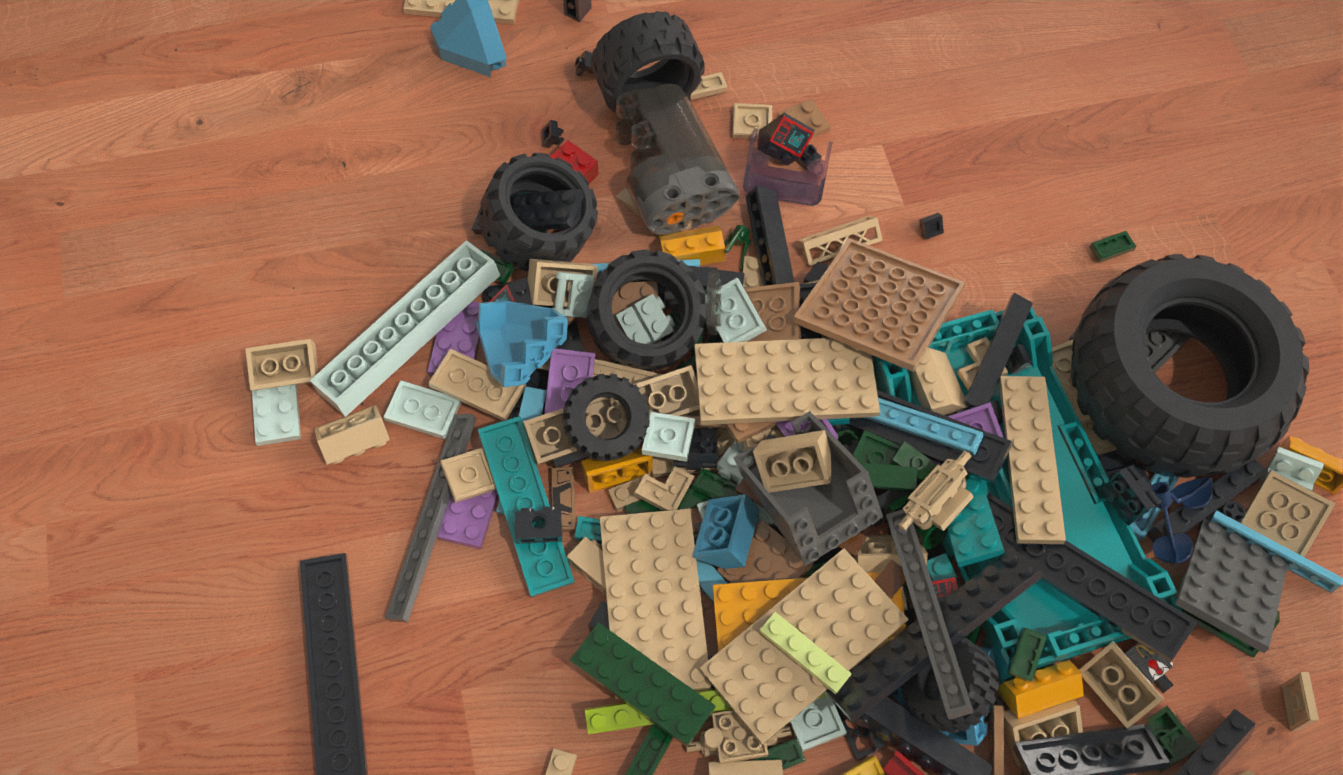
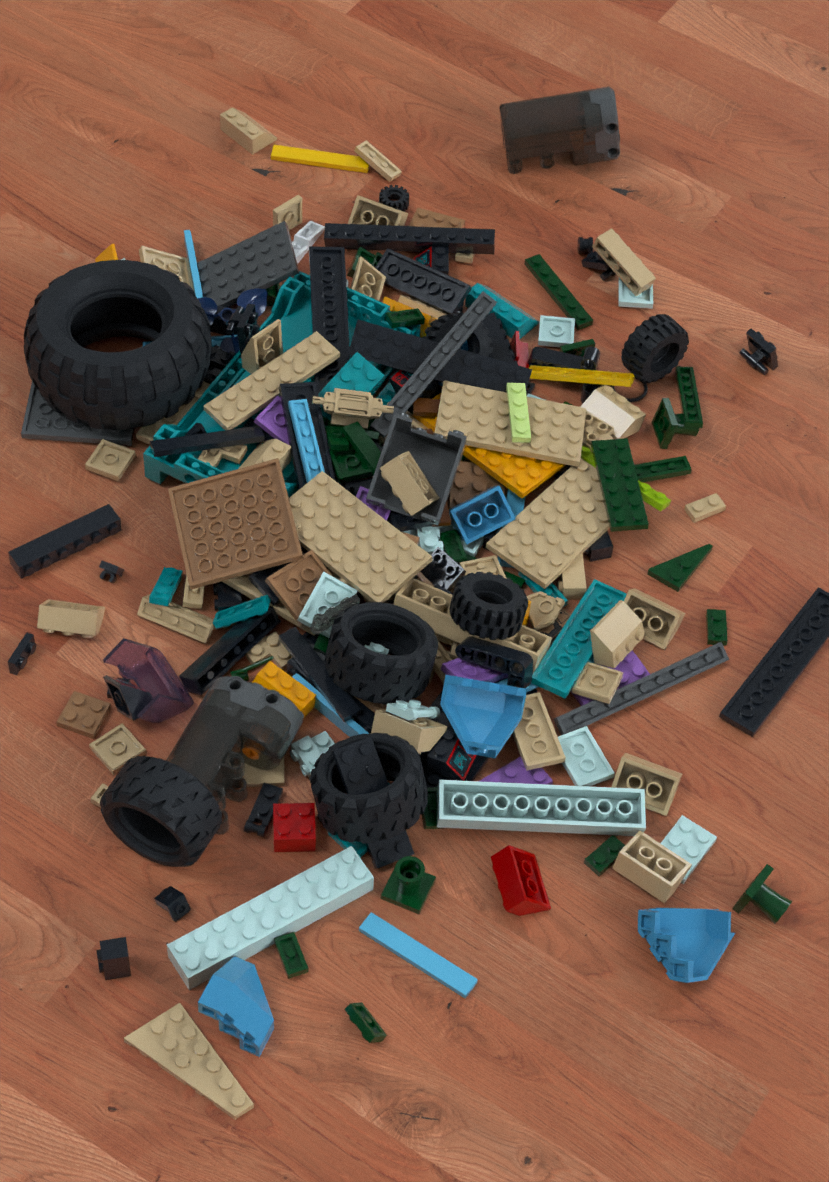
camera: 135 degrees left, 10 degrees down
(180, 414) = (763, 897): none -> dark green plant
(207, 334) = (686, 939): none -> dark azure panel
(331, 347) = (604, 855): none -> dark green plate
(373, 274) = (519, 881): none -> red slope
(383, 101) = (365, 1022): none -> dark green plate
(396, 171) = (418, 955): none -> medium azure tile
(427, 646) = (716, 626): none -> dark green plate
(450, 203) = (409, 885): none -> dark green plant
(478, 99) = (291, 955): none -> dark green plate
(490, 592) = (658, 618): none -> tan slope
(492, 528) = (616, 635): none -> tan slope
(515, 672) = (678, 570): none -> dark green wing
(516, 99) = (270, 915): none -> light aqua brick
(544, 396) = (499, 658): none -> black beam
(549, 533) = (586, 608): black brick -> none
(551, 134) = (273, 870): black tile -> none
(584, 504) = (544, 609): none -> tan plate
(608, 169) = (263, 809): none -> black plate
(617, 233) = (309, 749): none -> light aqua plate
(668, 436) = (454, 568): light aqua plate -> none
(794, 267) = (241, 612): none -> teal plate
(870, 234) = (166, 586): none -> teal plate
(897, 116) = (22, 652): none -> black plate
(906, 168) = (70, 618): none -> tan slope
(991, 216) = (65, 541): none -> black brick
(1060, 307) = (110, 460): none -> tan plate
(1080, 483) = (263, 347): none -> tan slope
(1112, 246) = (24, 461): dark green plate -> none
(1249, 695) = (306, 237): none -> white slope

